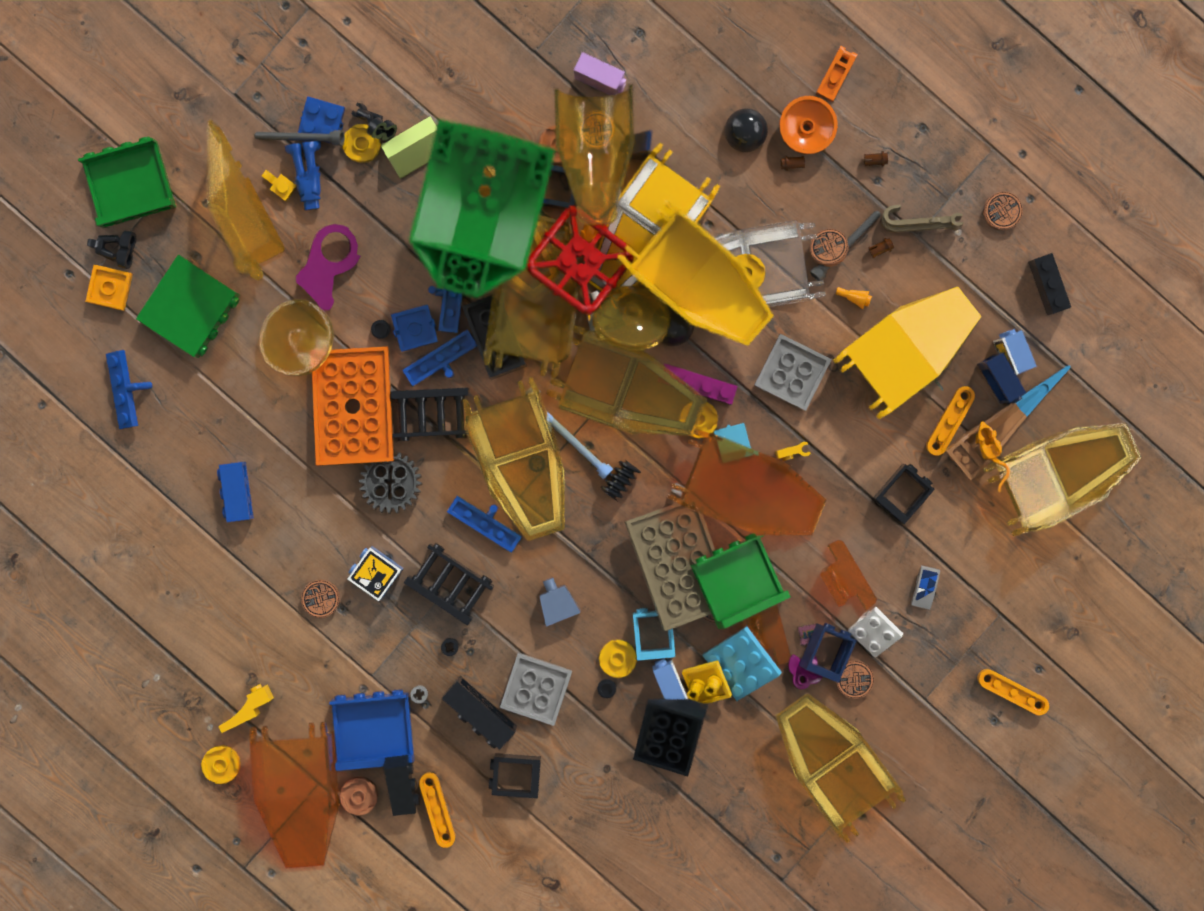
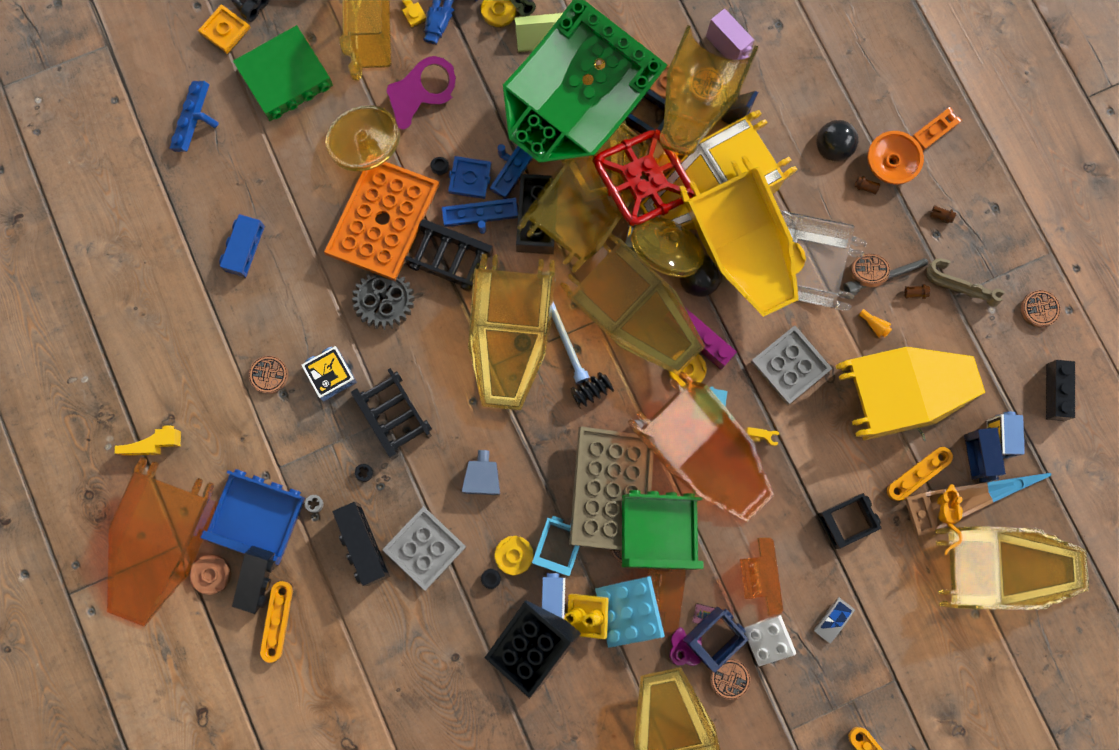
camera: 20 degrees right, 10 degrees down
(220, 764) = (99, 485): yellow tile -> none
(484, 523) = (450, 373): blue plate -> none
(521, 759) = (384, 631): black window -> none

